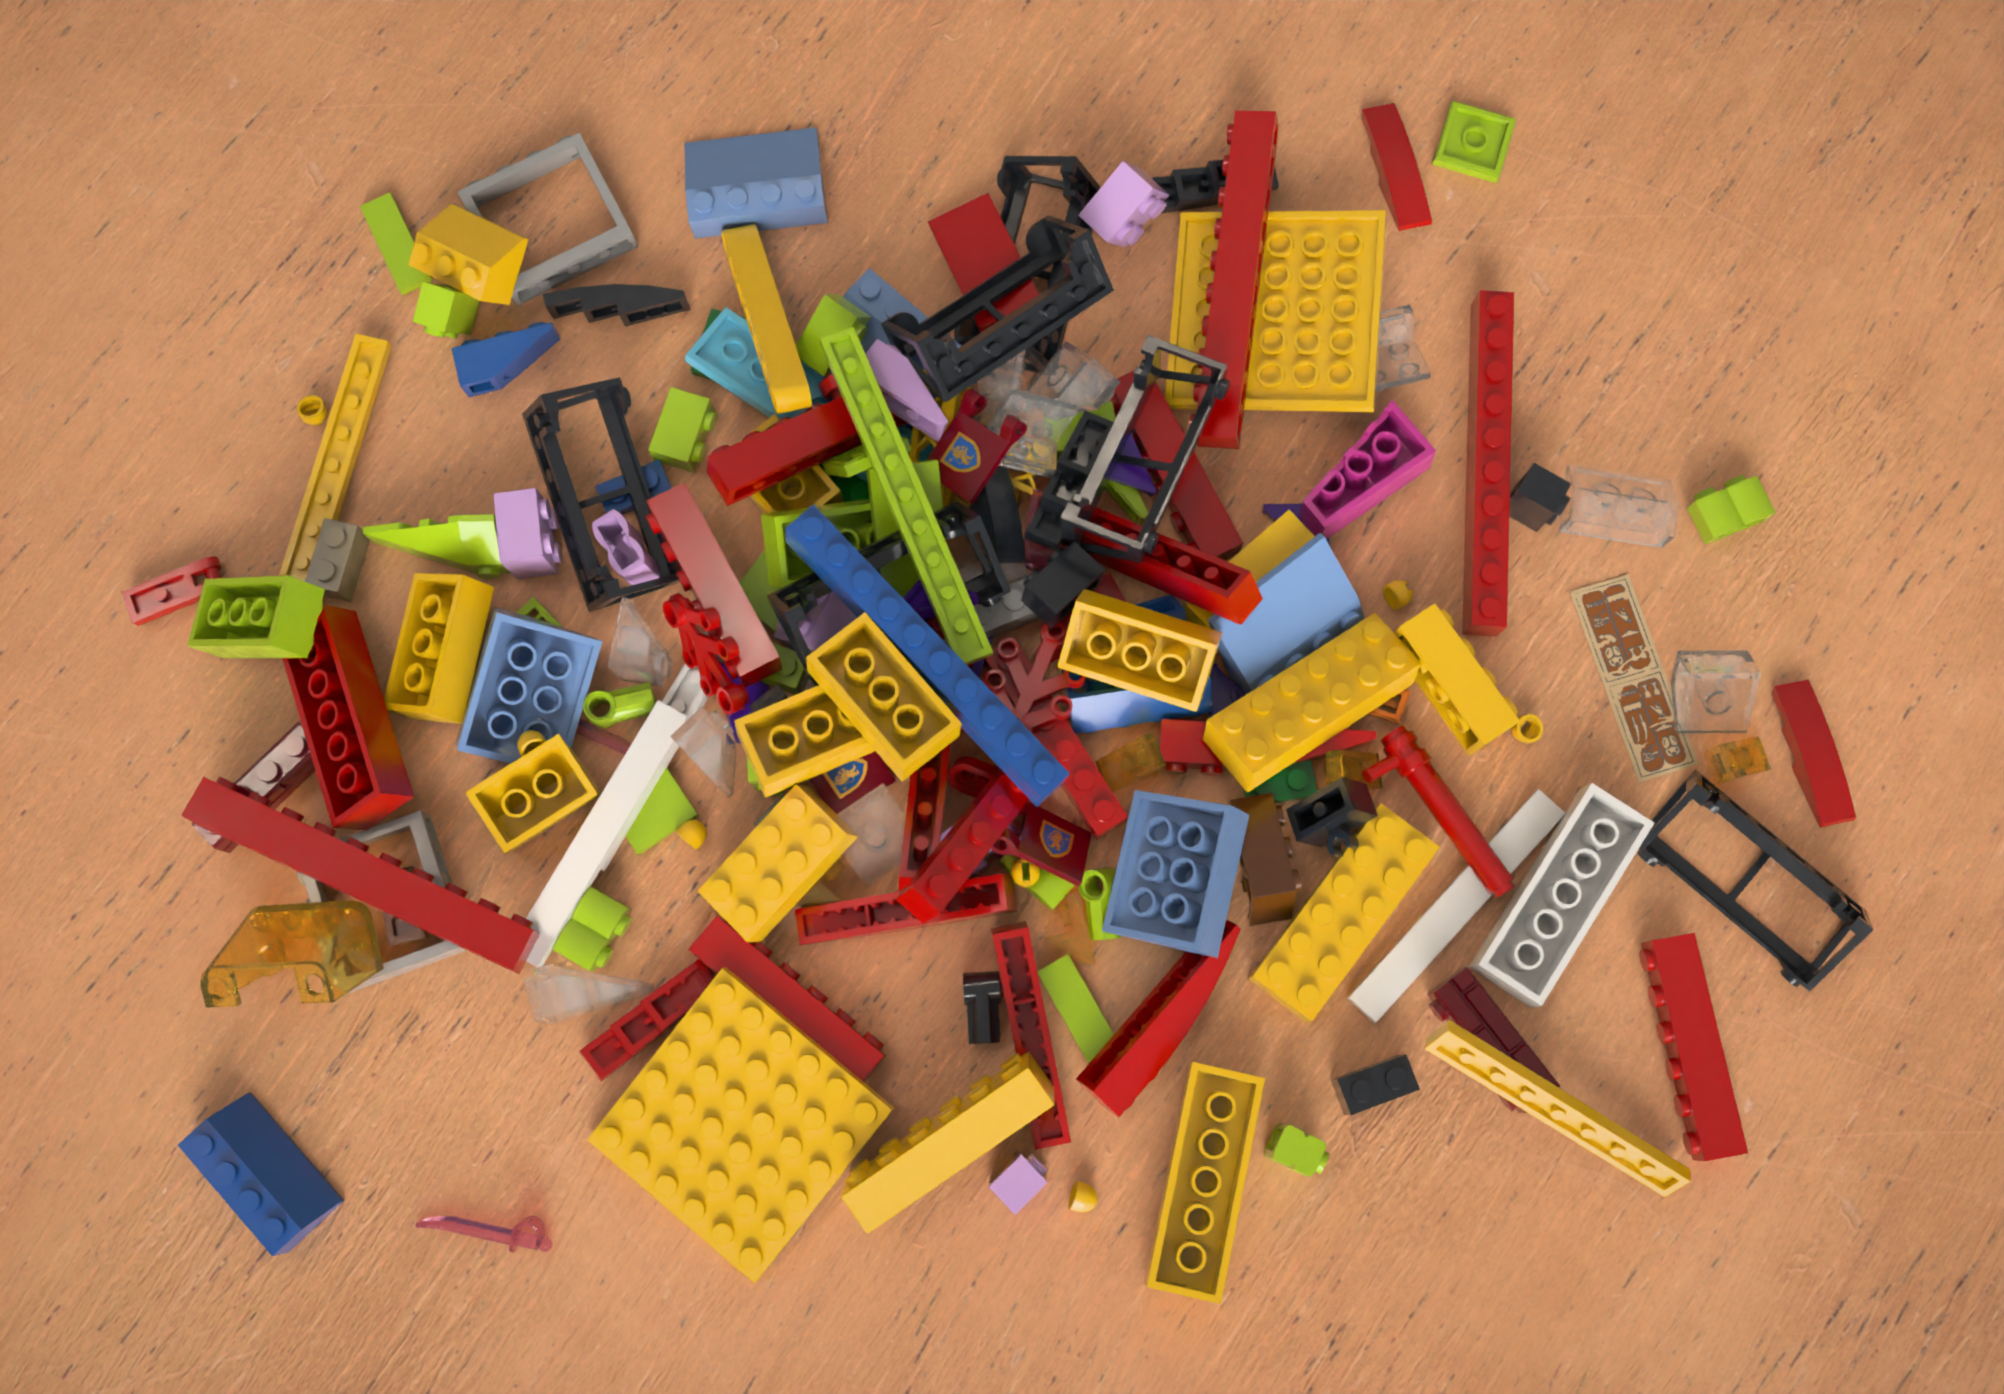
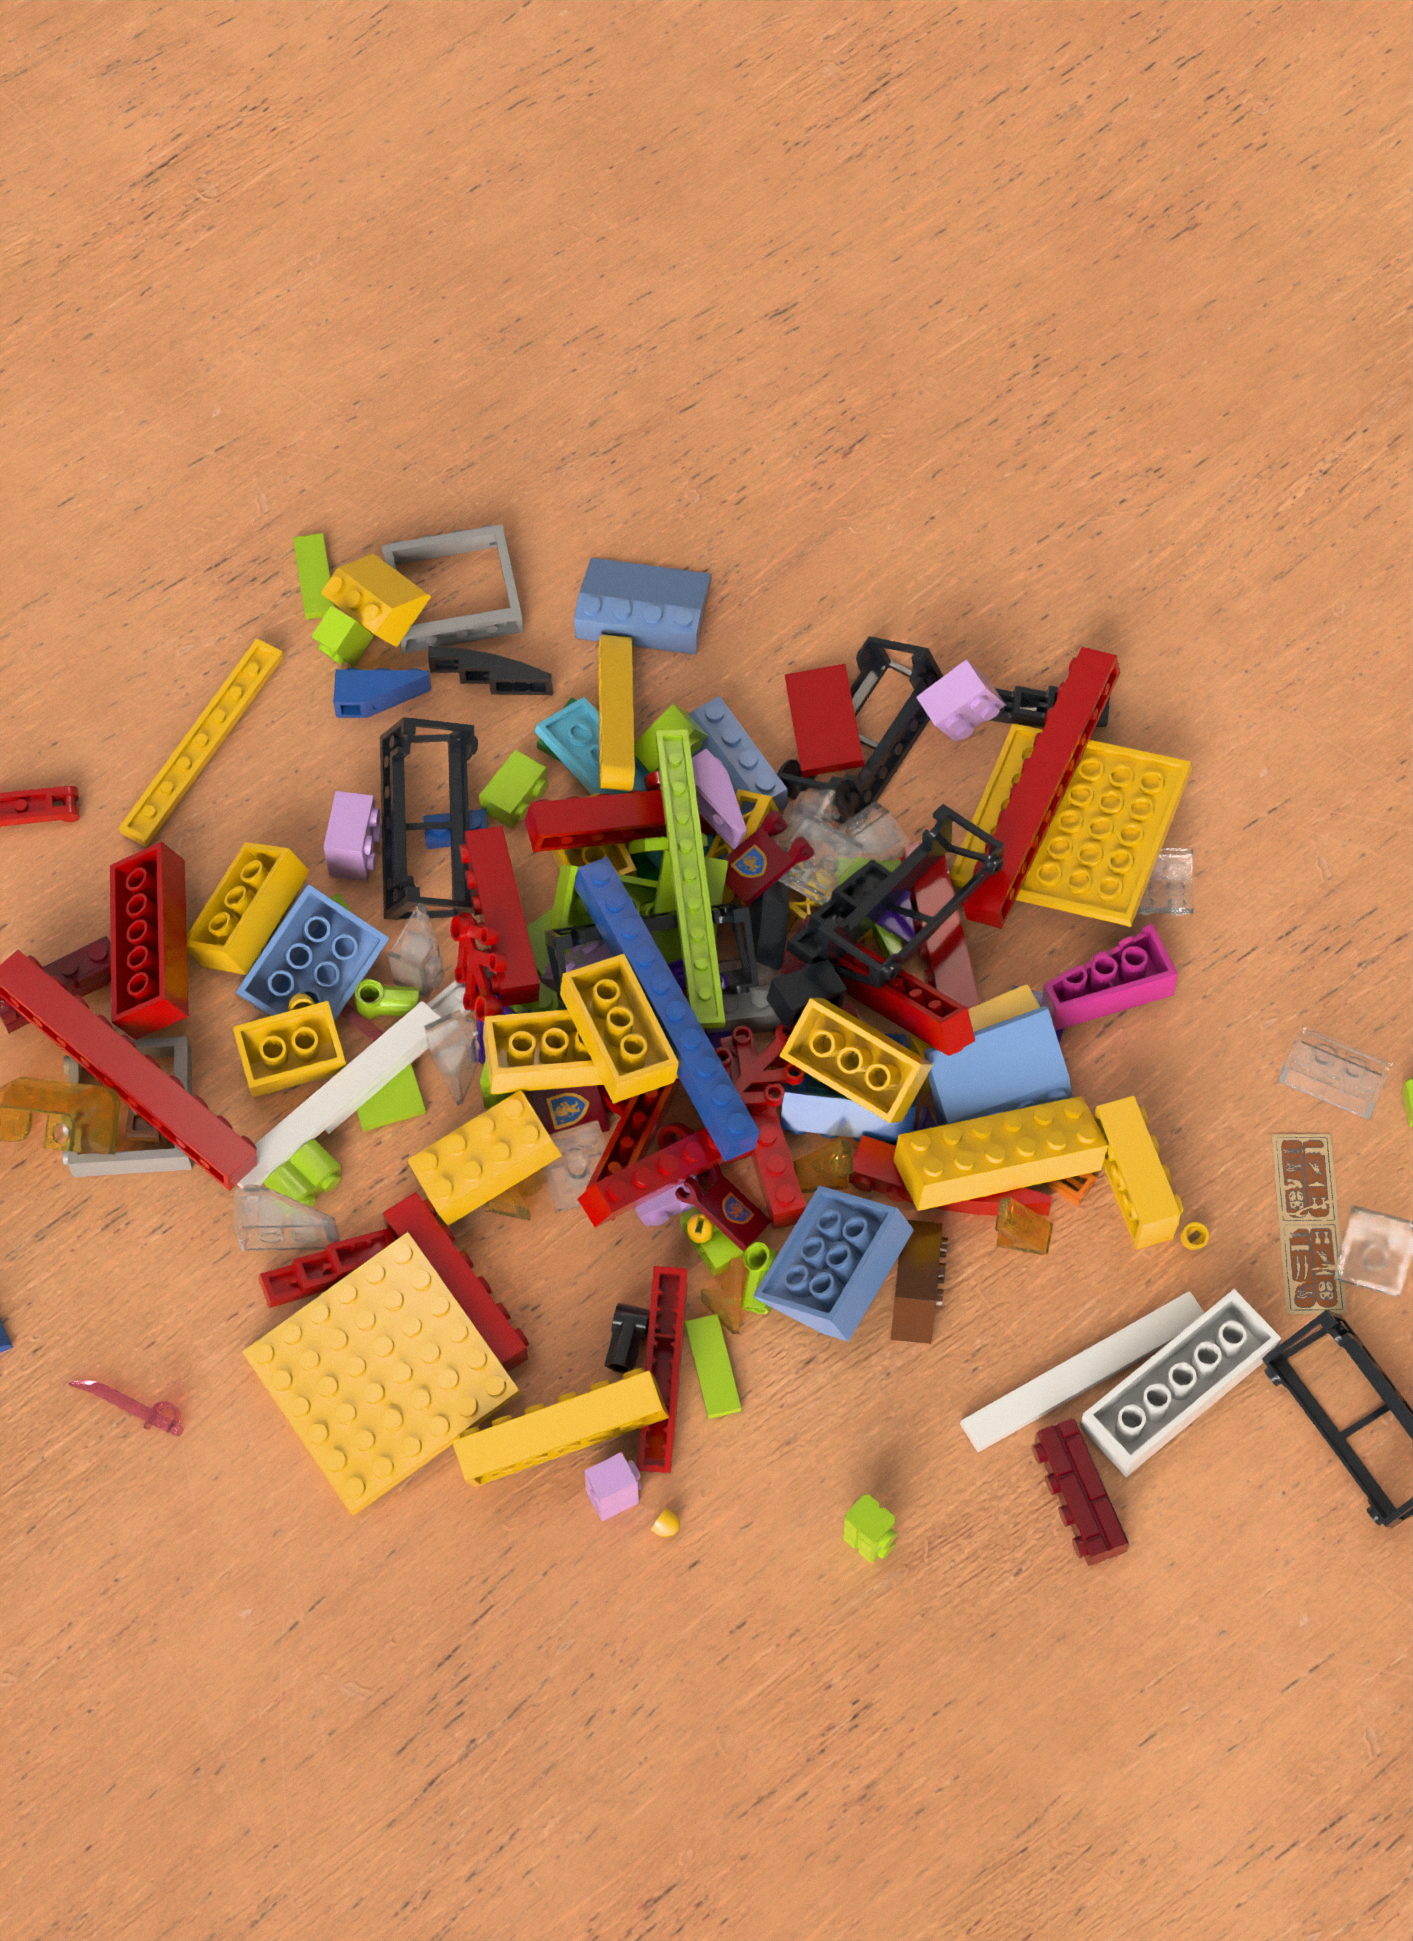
camera: 15 degrees right, 15 degrees down
(256, 617) = (100, 839): lime brick -> none
(312, 410) = (198, 691): yellow hinge -> none
(338, 559) = (181, 816): dark tan brick -> none
(462, 543) = (293, 826): lime wedge -> none
(625, 548) = (432, 868): lavender brick -> none
(693, 833) = (416, 1123): yellow hinge -> none
(884, 914) = (574, 1236): red slope -> none
(956, 369) = (768, 790): black windscreen -> none
(1155, 1028) = (776, 1395): red slope -> none
(1204, 1182) = (779, 1535): yellow brick -> none
(1290, 784) = (959, 1224): green plate -> none
(1331, 815) = (990, 1253): black brick -> none
(1343, 914) = (976, 1345): yellow brick -> none
(1375, 1084) = (960, 1498): black brick -> none
(1397, 167) = (1219, 734): red slope -> none
(1397, 594) = (1111, 1090): yellow hinge -> none
(1415, 765) = (1081, 1239): red cylinder -> none
(1474, 141) = (1299, 733): lime tile -> none
(1488, 464) = (1226, 1004): red brick -> none
(1538, 497) = (1259, 1040): black brick -> none
(1557, 1108) = (1119, 1556): yellow plate -> none
(1693, 1048) = (1264, 1550): red brick -> none
(1736, 760) = (1381, 1312): clear yellow slope -> none

